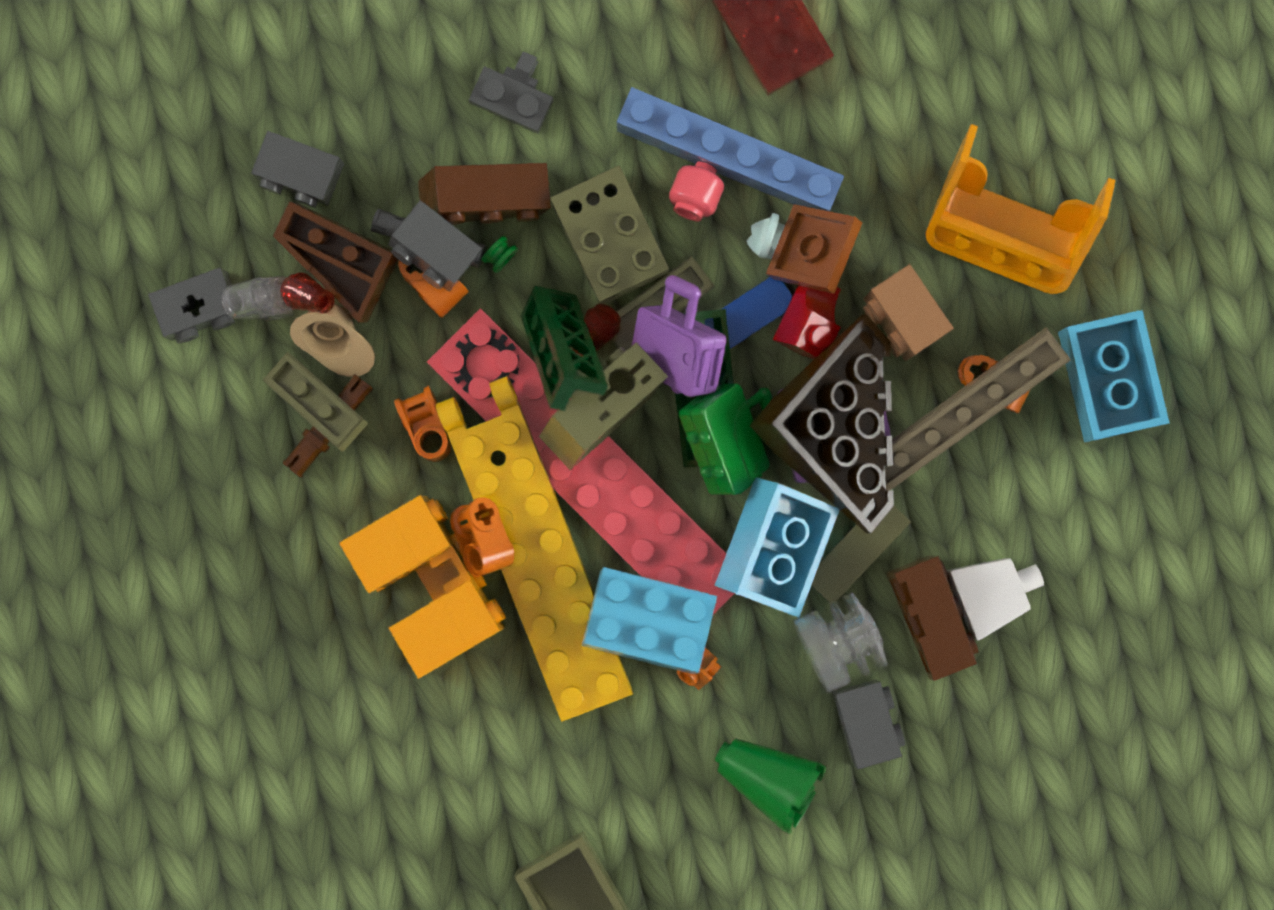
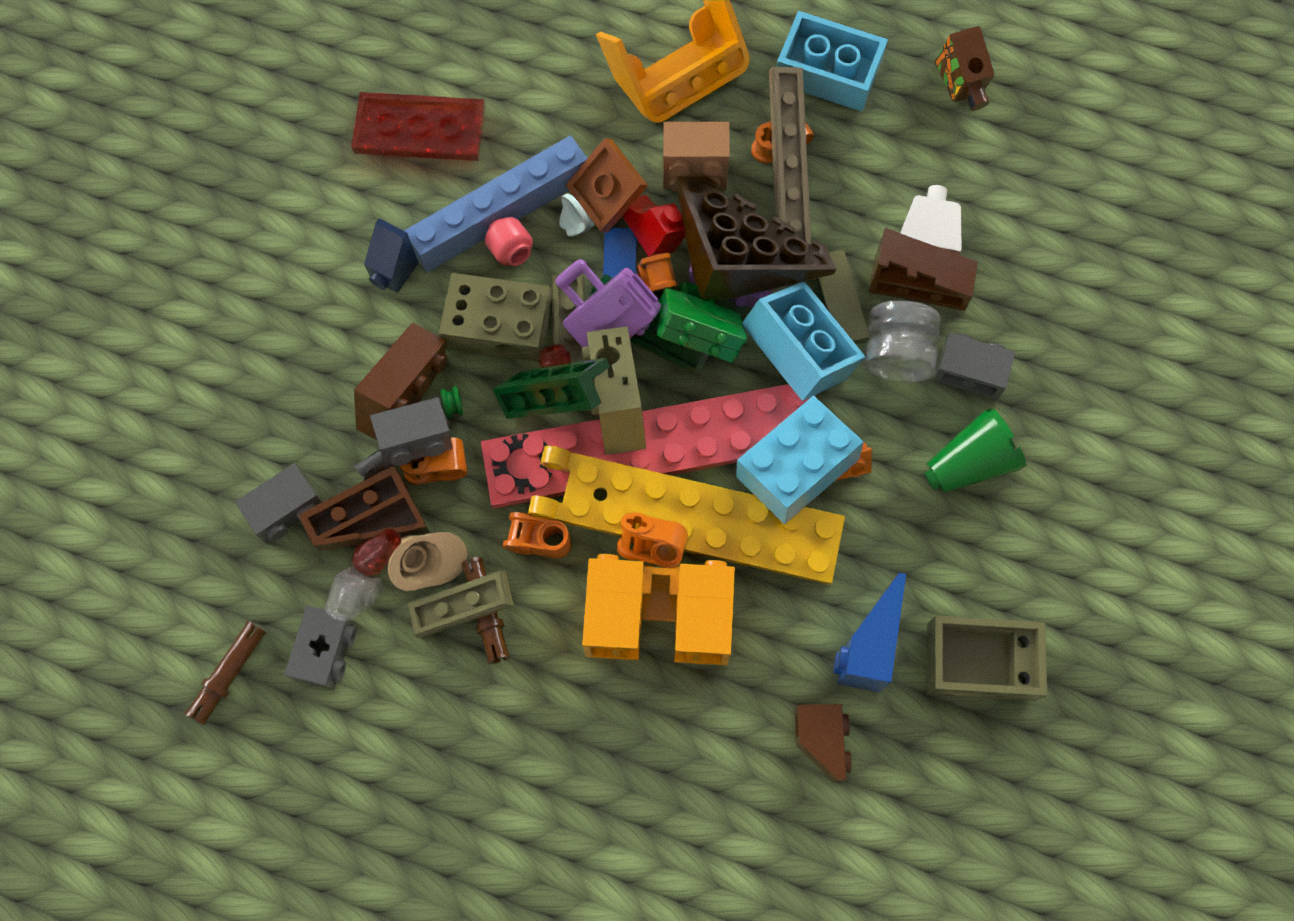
camera: 60 degrees left, 15 degrees down
(120, 236) = (225, 673): none -> reddish brown pin
(411, 800) = (821, 738): none -> reddish brown slope
(513, 94) = (347, 322): dark grey hinge -> none
(521, 793) = (870, 653): none -> blue slope
(596, 92) = (389, 257): none -> dark blue slope
(754, 362) = (657, 272): none -> orange piece
(1211, 514) = (966, 67): none -> reddish brown torso

